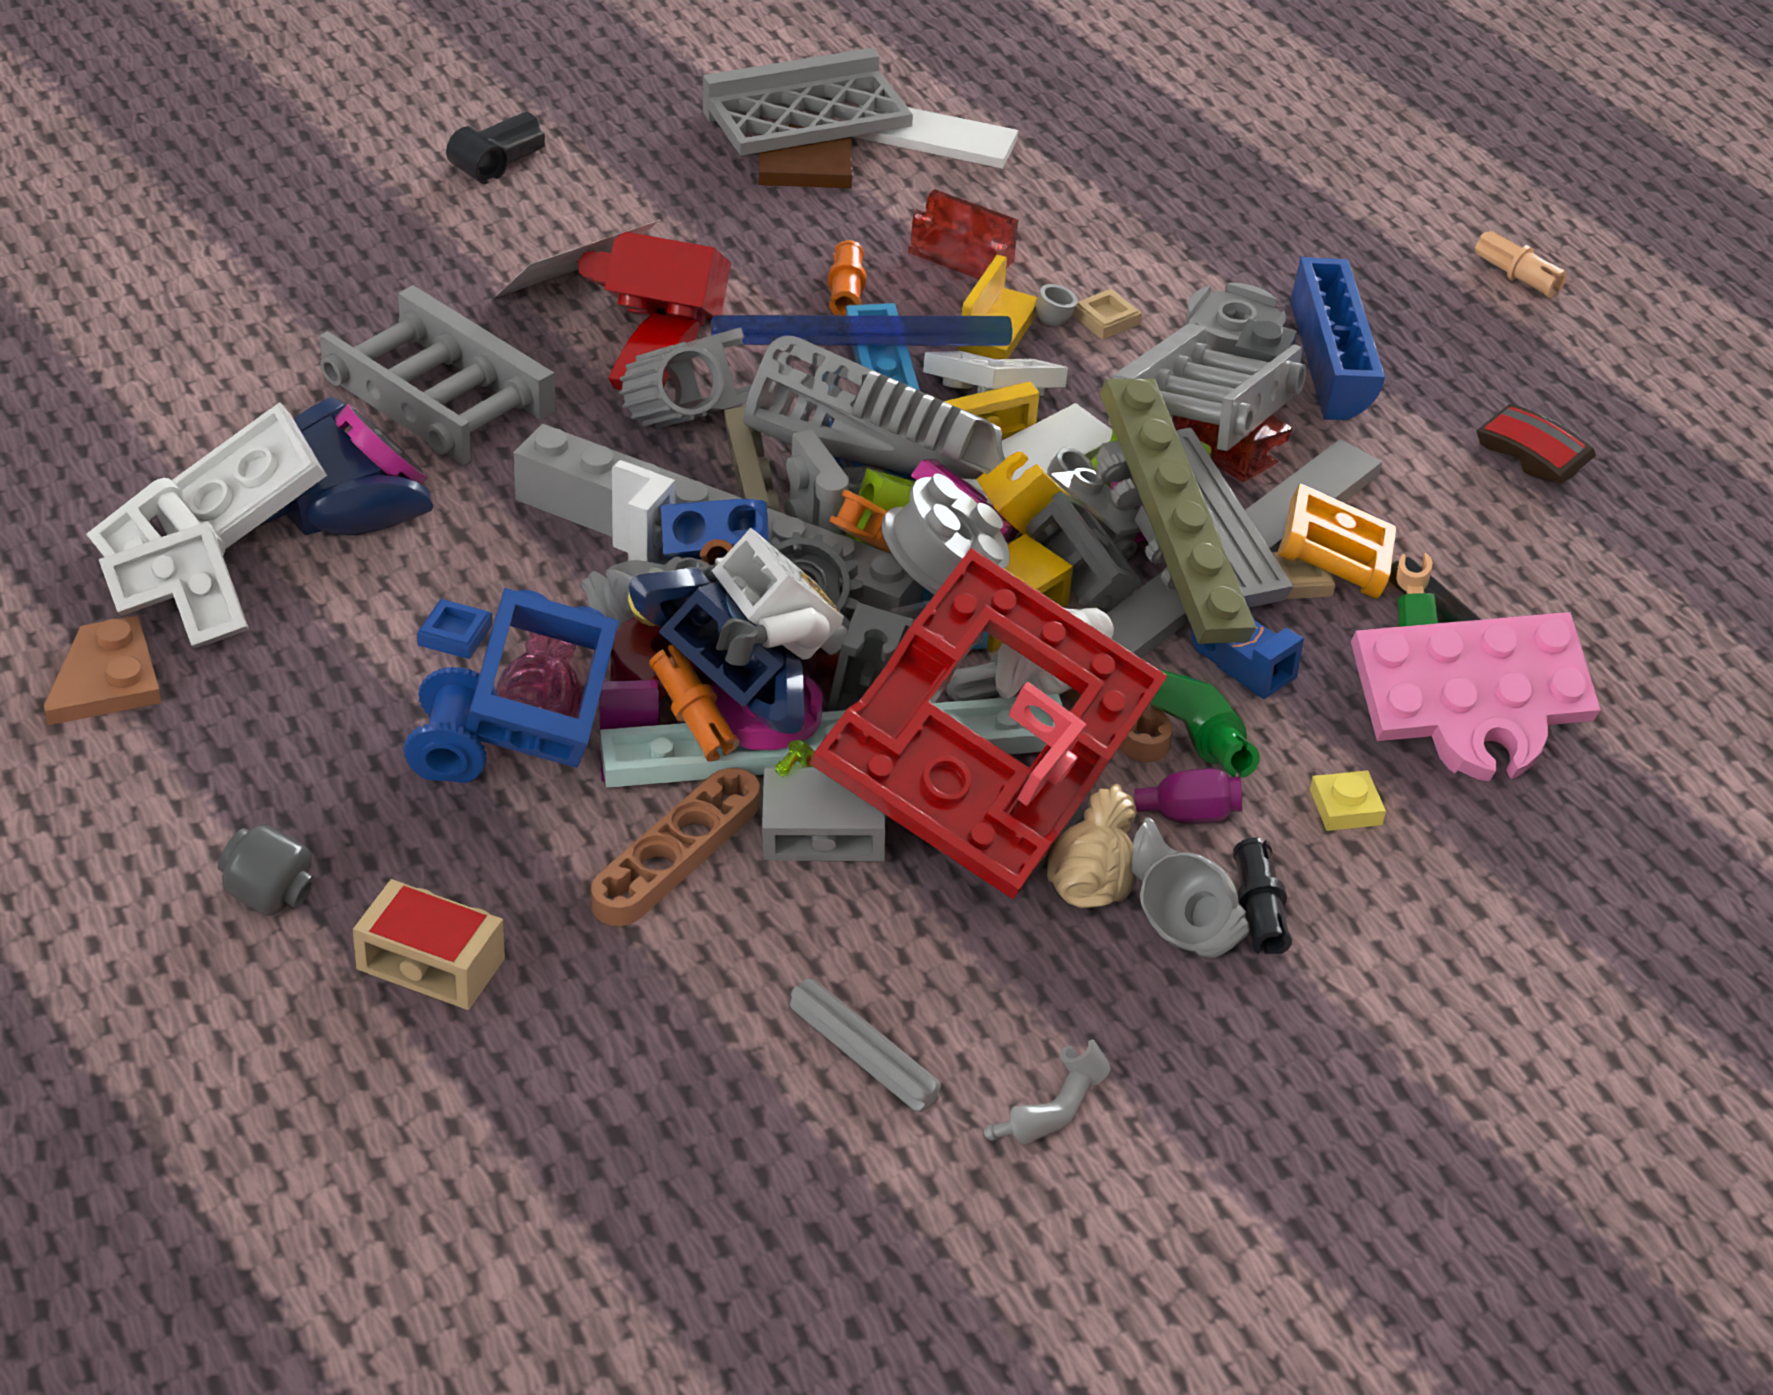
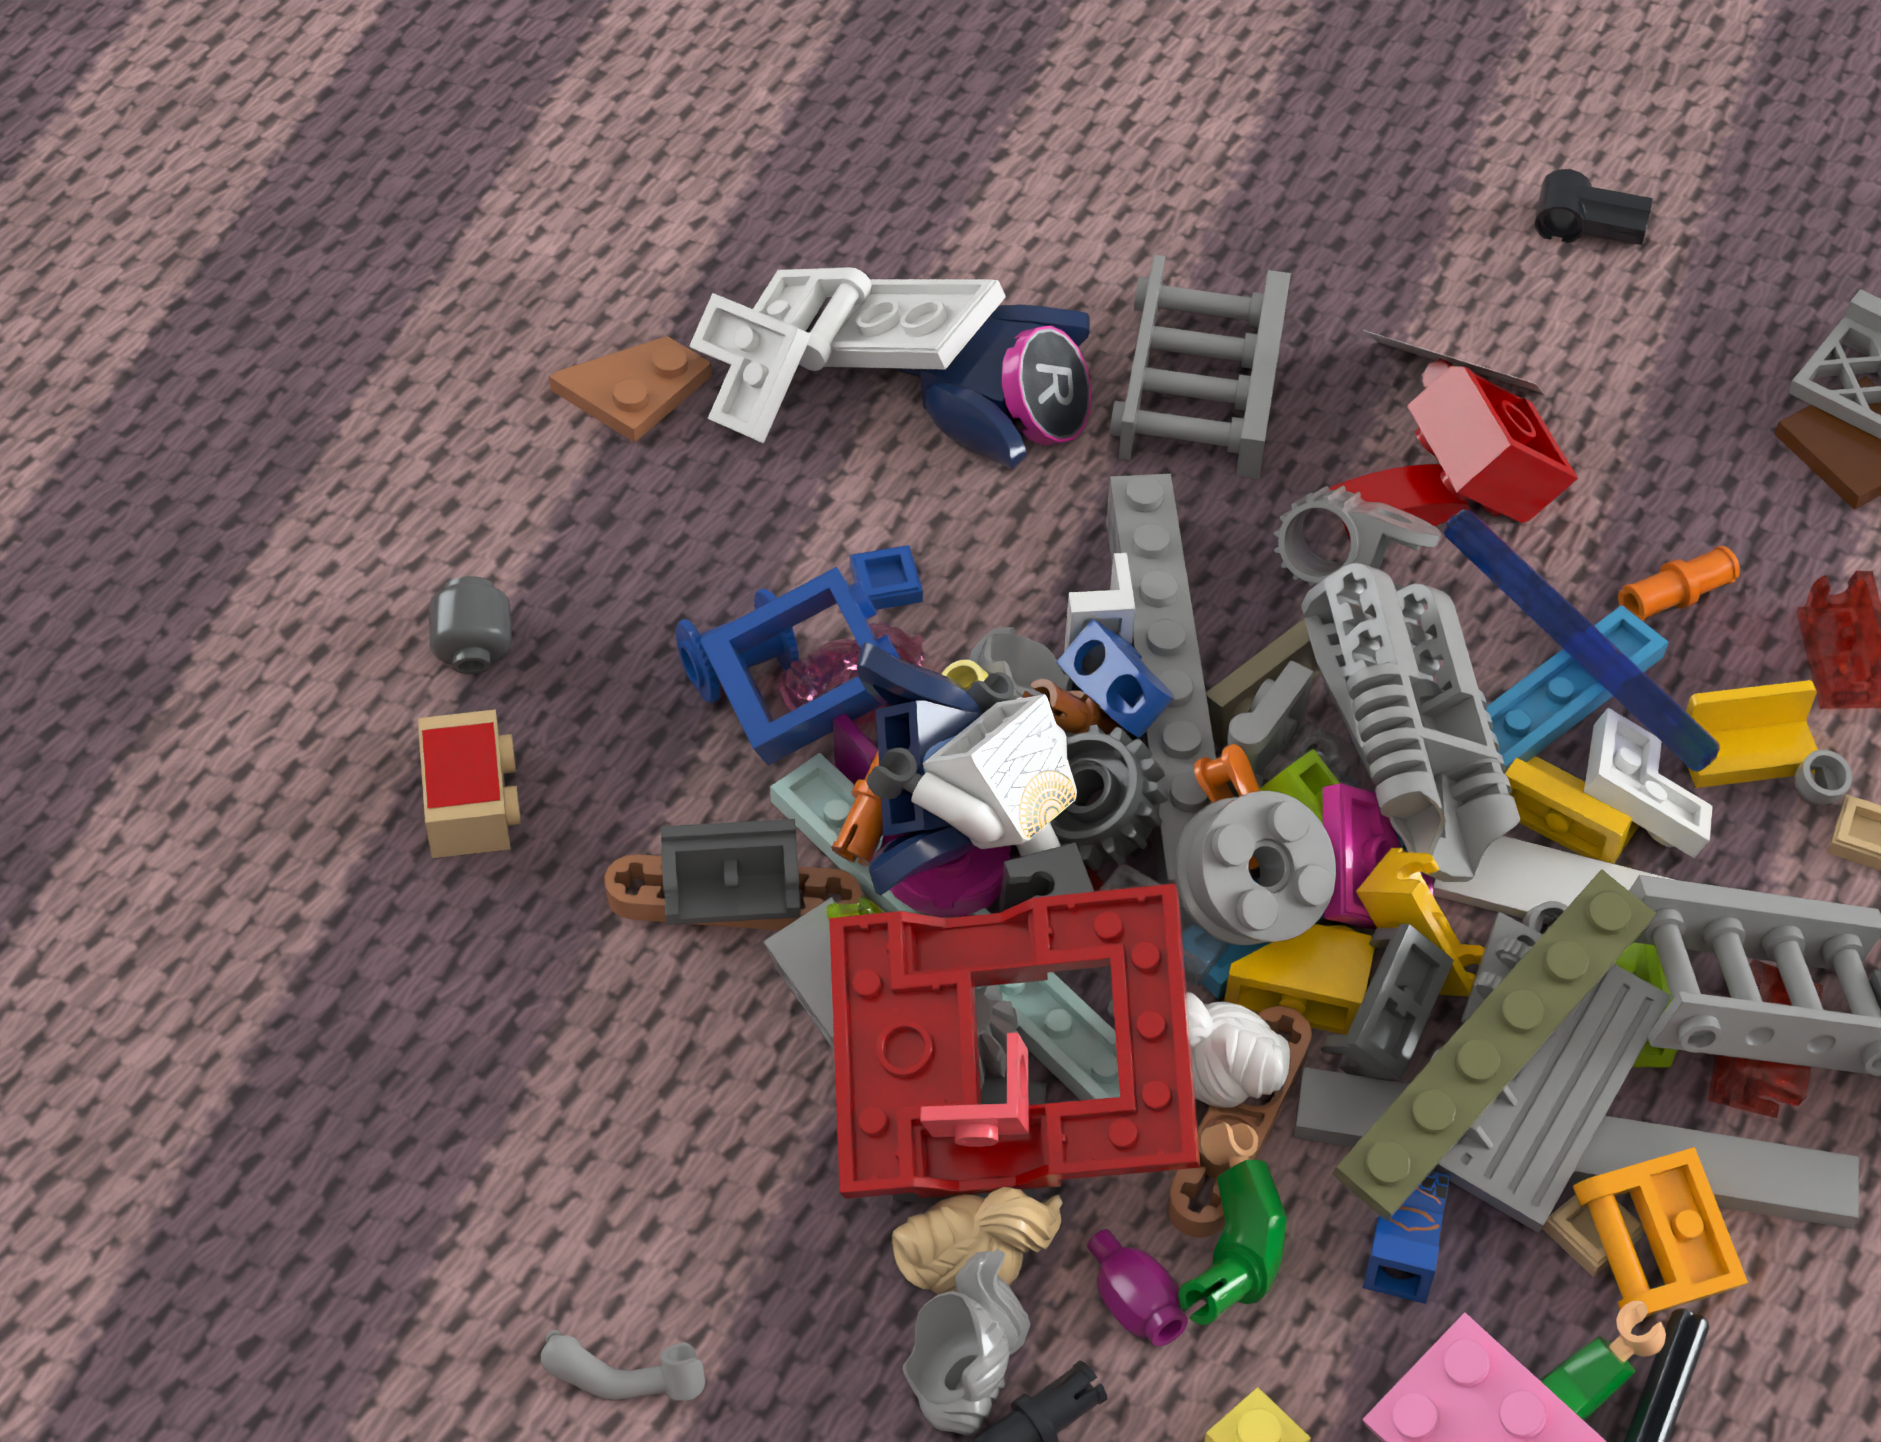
camera: 60 degrees right, 10 degrees up
(678, 819) = (730, 871): none -> dark grey hinge
(865, 1045) = (586, 1177): light grey axle -> none

